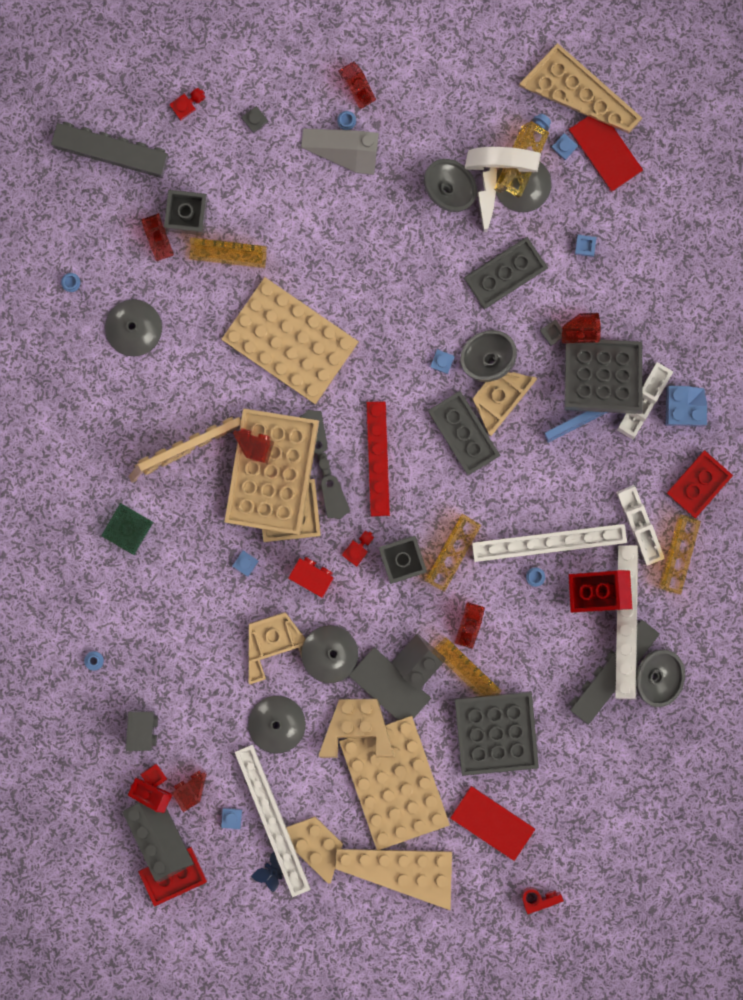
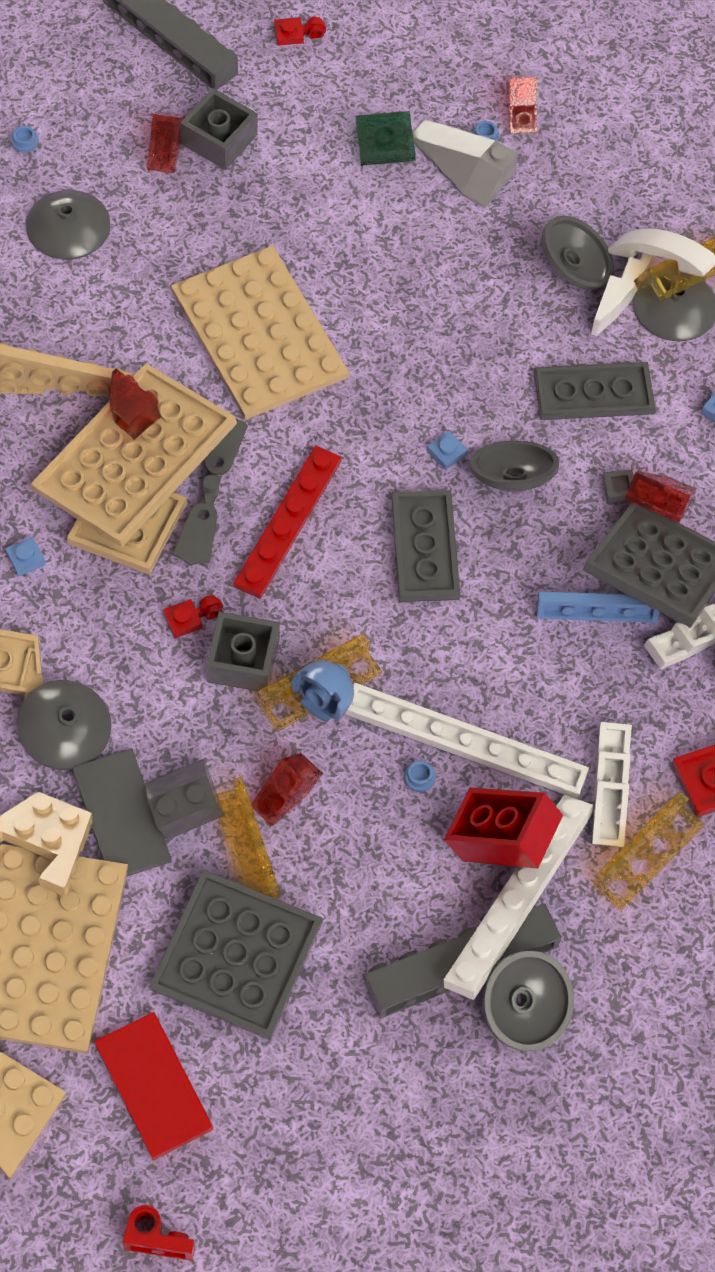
camera: 25 degrees right, 25 degrees down
(228, 252) = (243, 198): clear yellow fence -> none
(255, 119) = (370, 83): dark grey plate -> none
(288, 159) = (385, 138): none -> clear green plate
(312, 578) = (102, 599): red brick -> none
(461, 559) = (324, 689): none -> medium blue cylinder
(499, 398) = (503, 526): tan wing -> none

